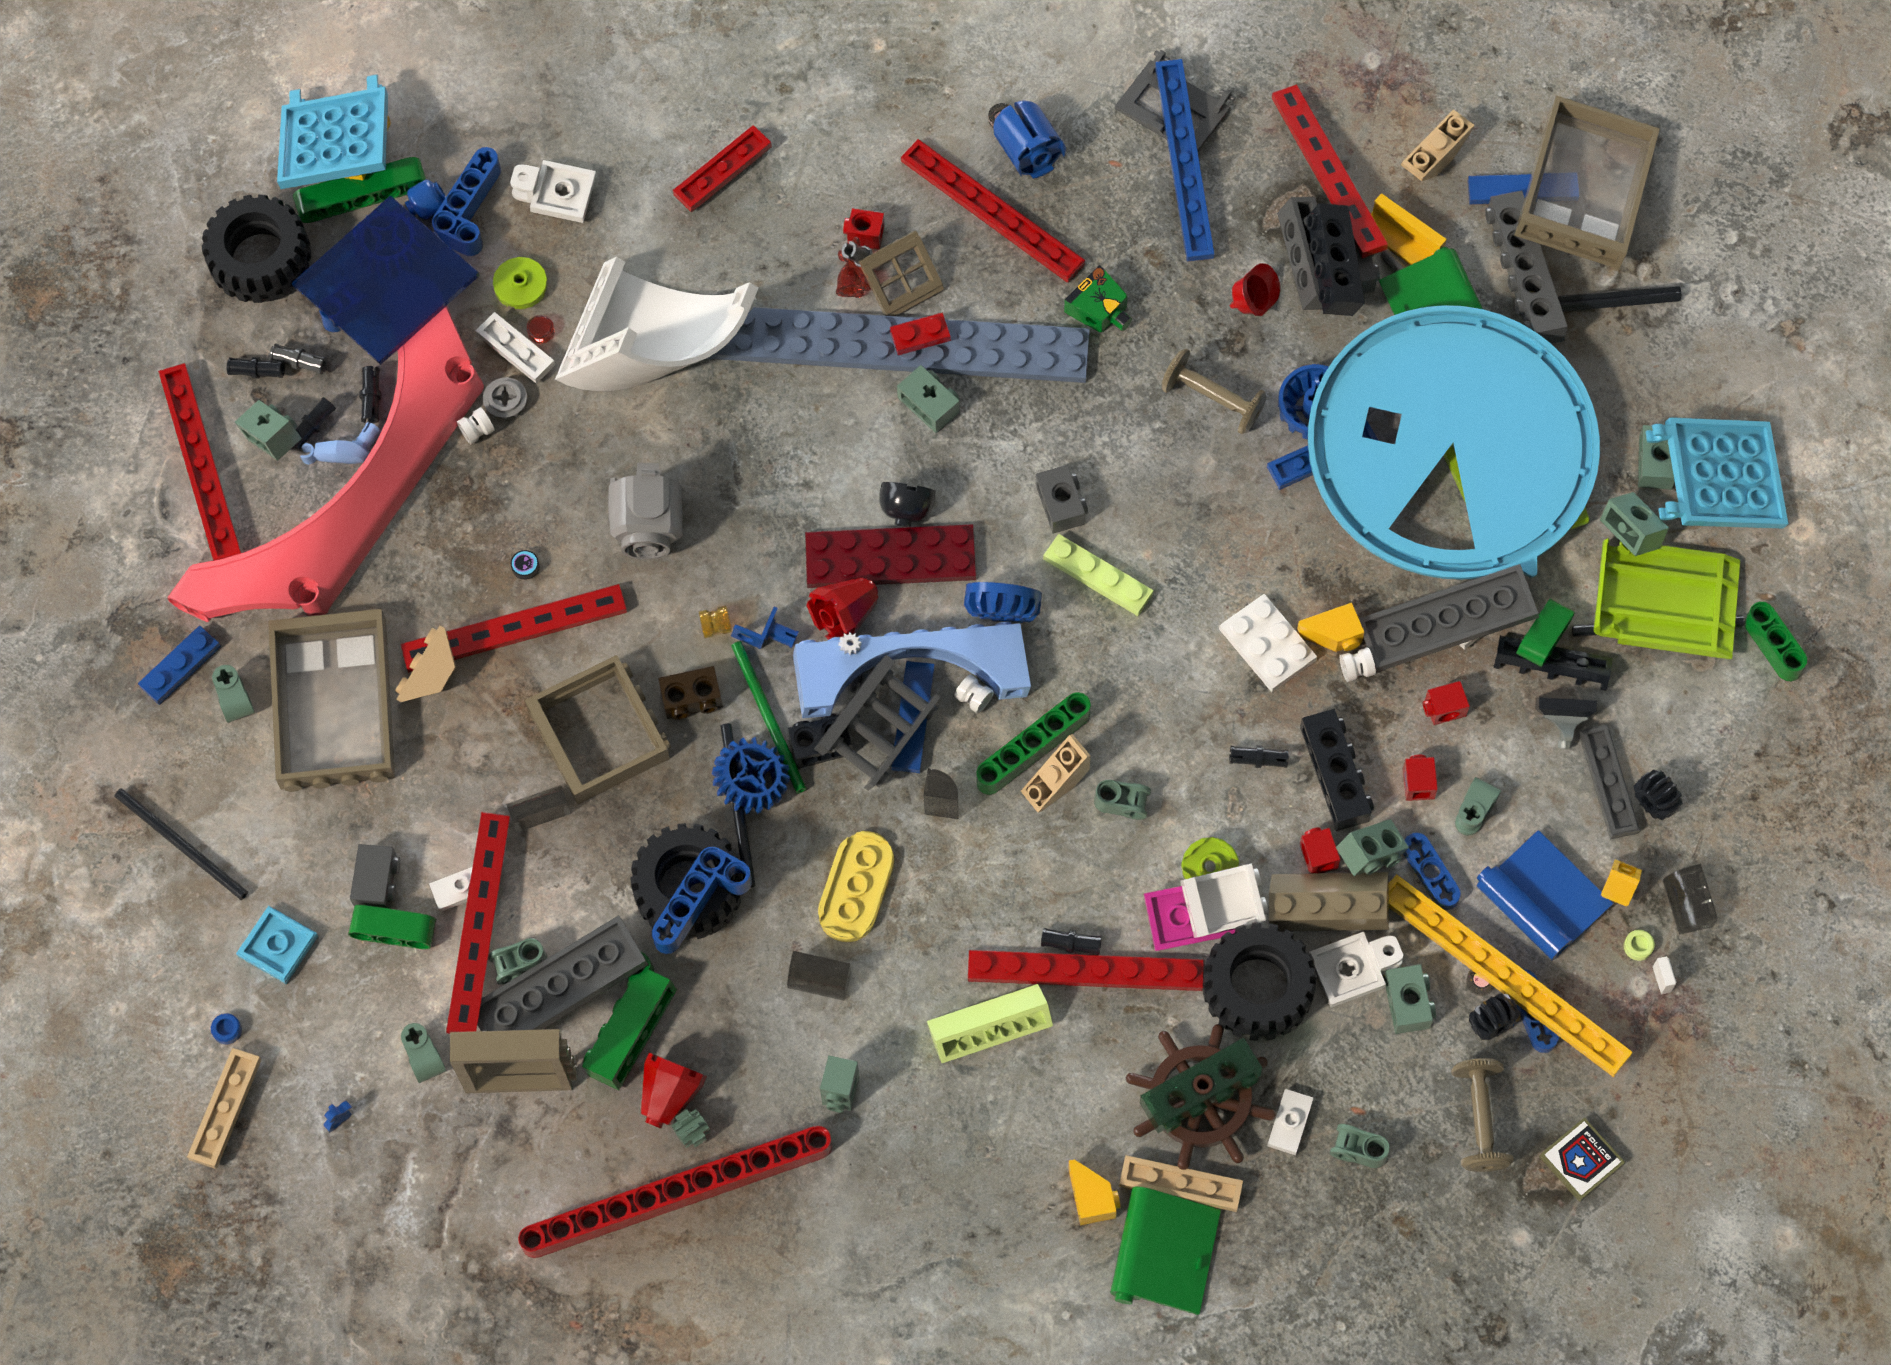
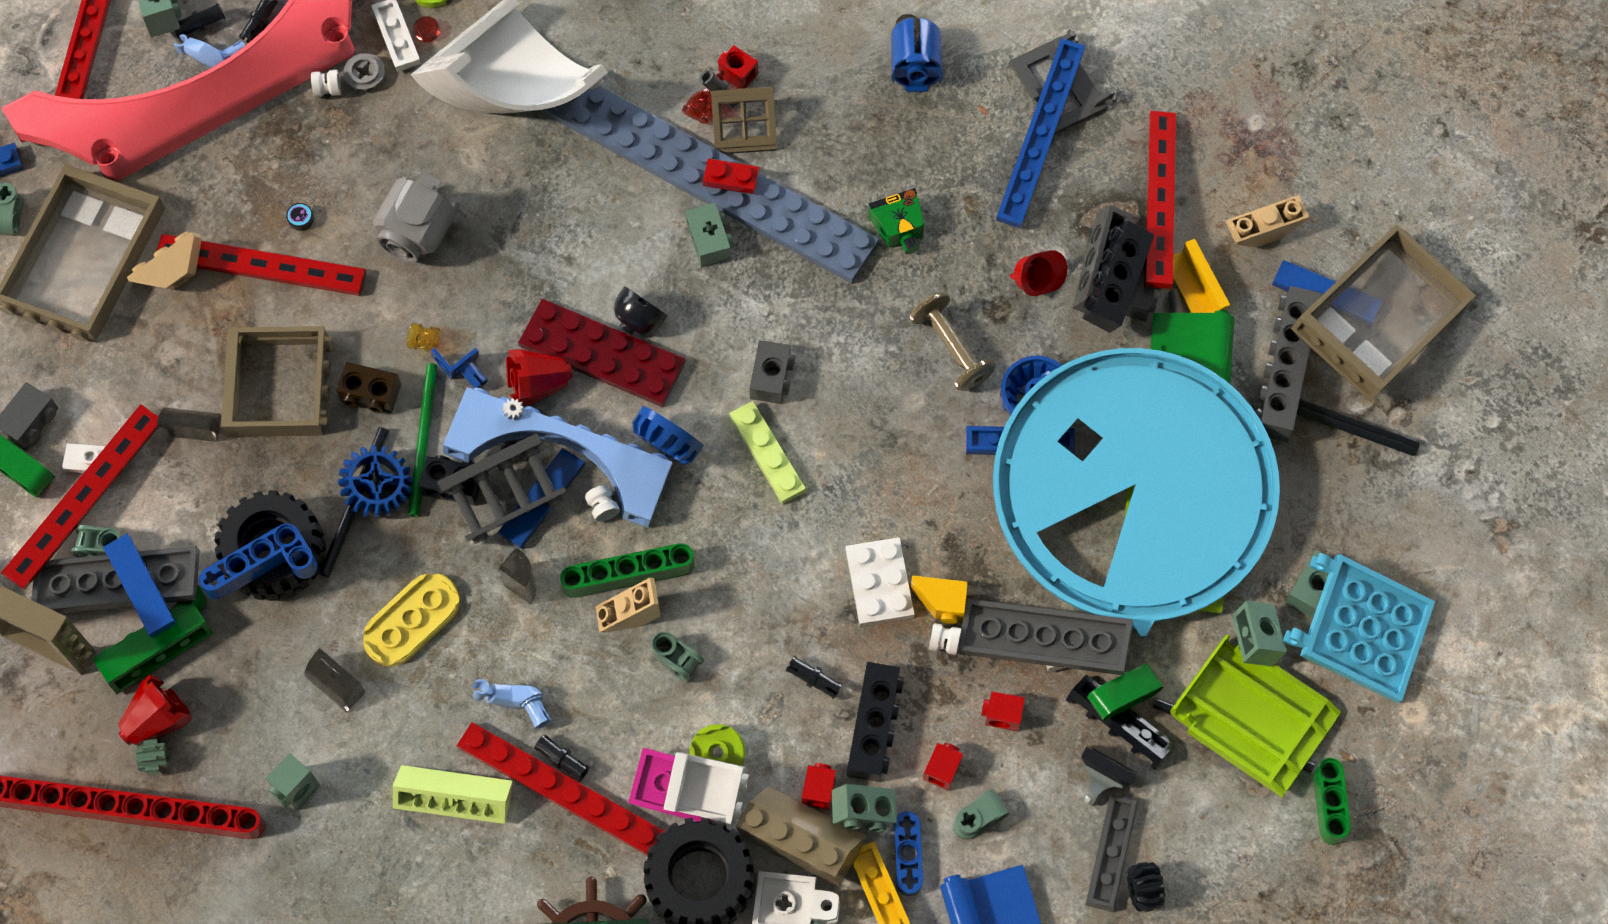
camera: 25 degrees right, 0 degrees up
(589, 976) = (139, 585): none -> blue tile
(993, 211) = (856, 103): red tile -> none
(998, 907) = (514, 697): none -> light blue arm

